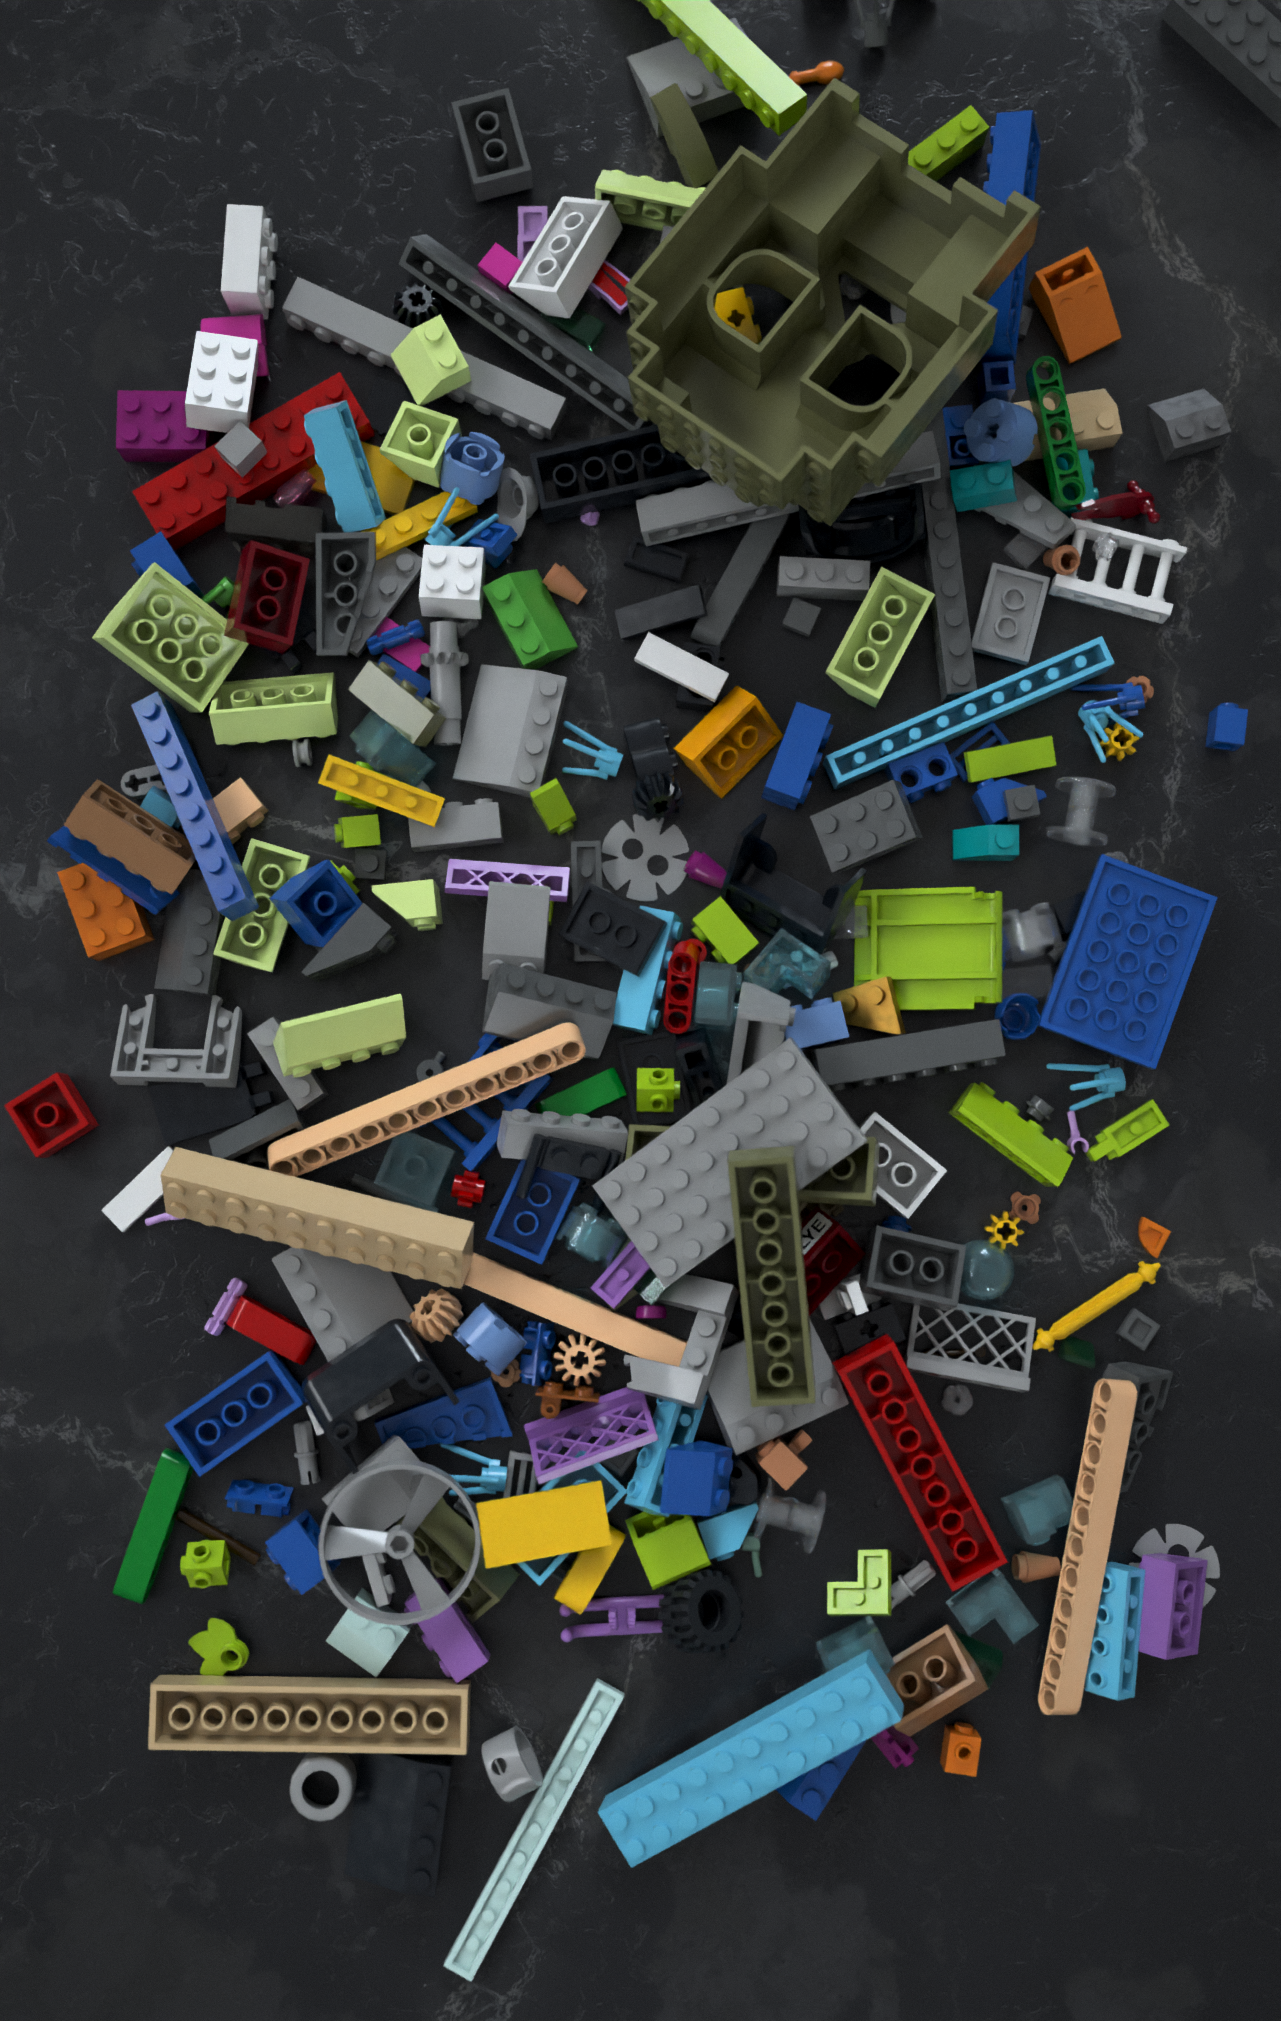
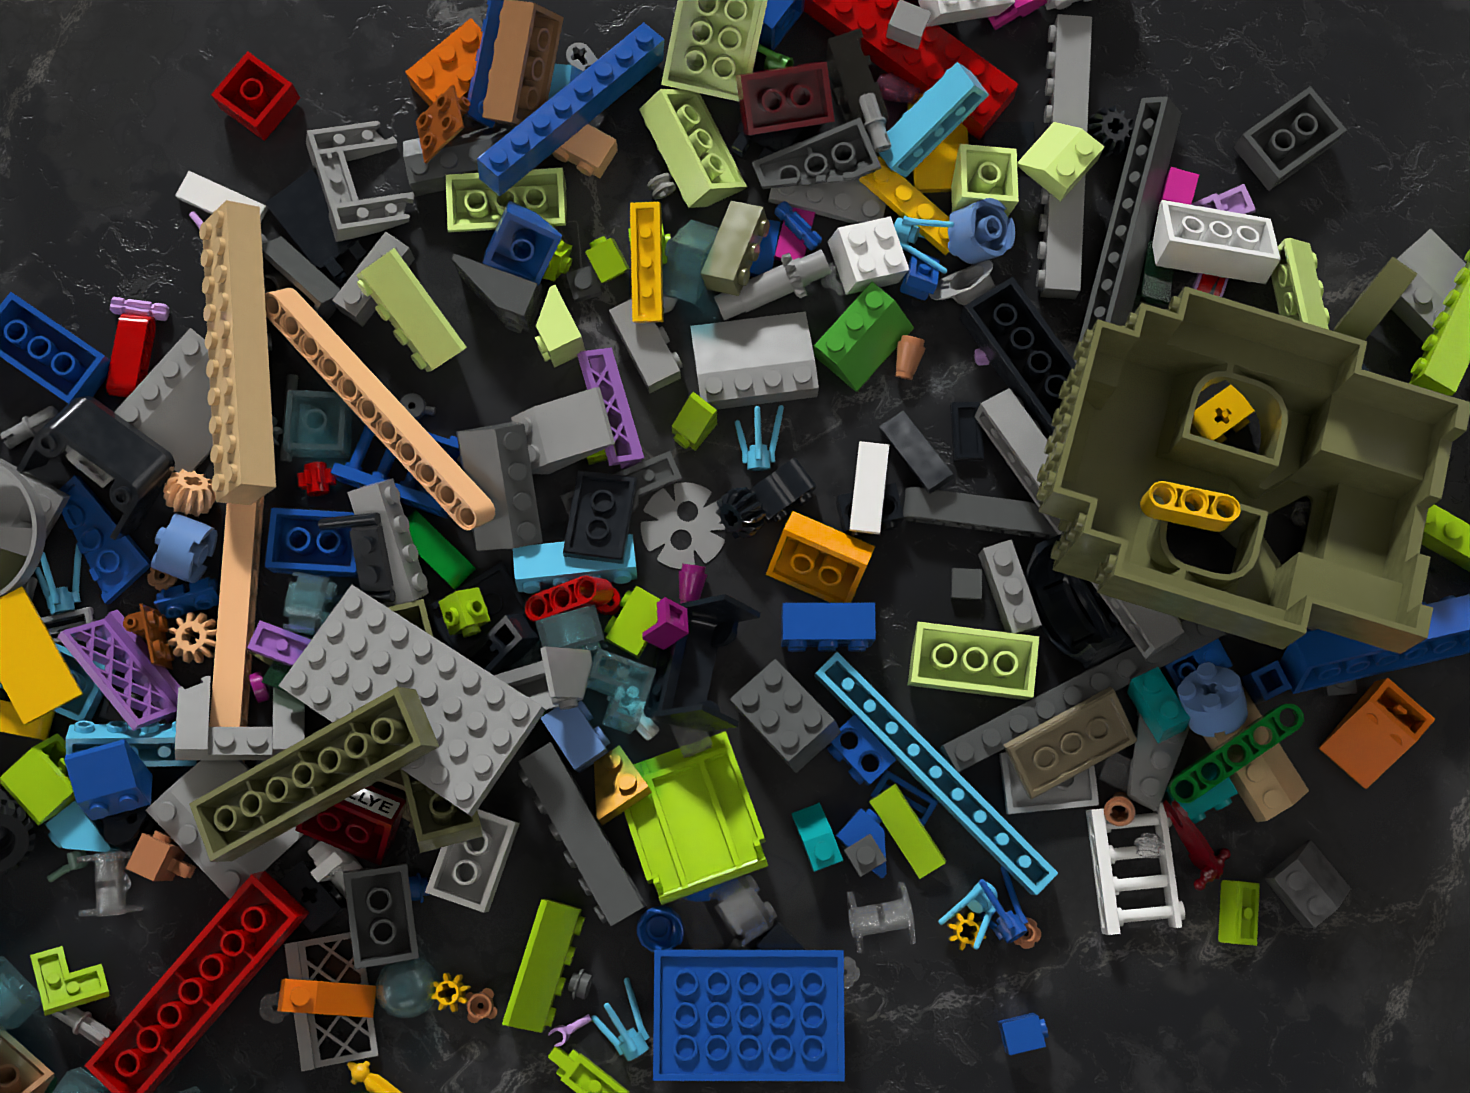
camera: 70 degrees right, 5 degrees down
(160, 938) = (441, 122): none -> dark orange hinge
(324, 521) = (874, 123): none -> light grey axle
(743, 901) = (671, 624): none -> magenta panel
(833, 356) = (1203, 500): none -> yellow beam
(970, 1346) = (326, 998): none -> orange slope
(987, 578) = (1070, 742): none -> dark tan tile
(1188, 495) = (1238, 912): none -> lime slope

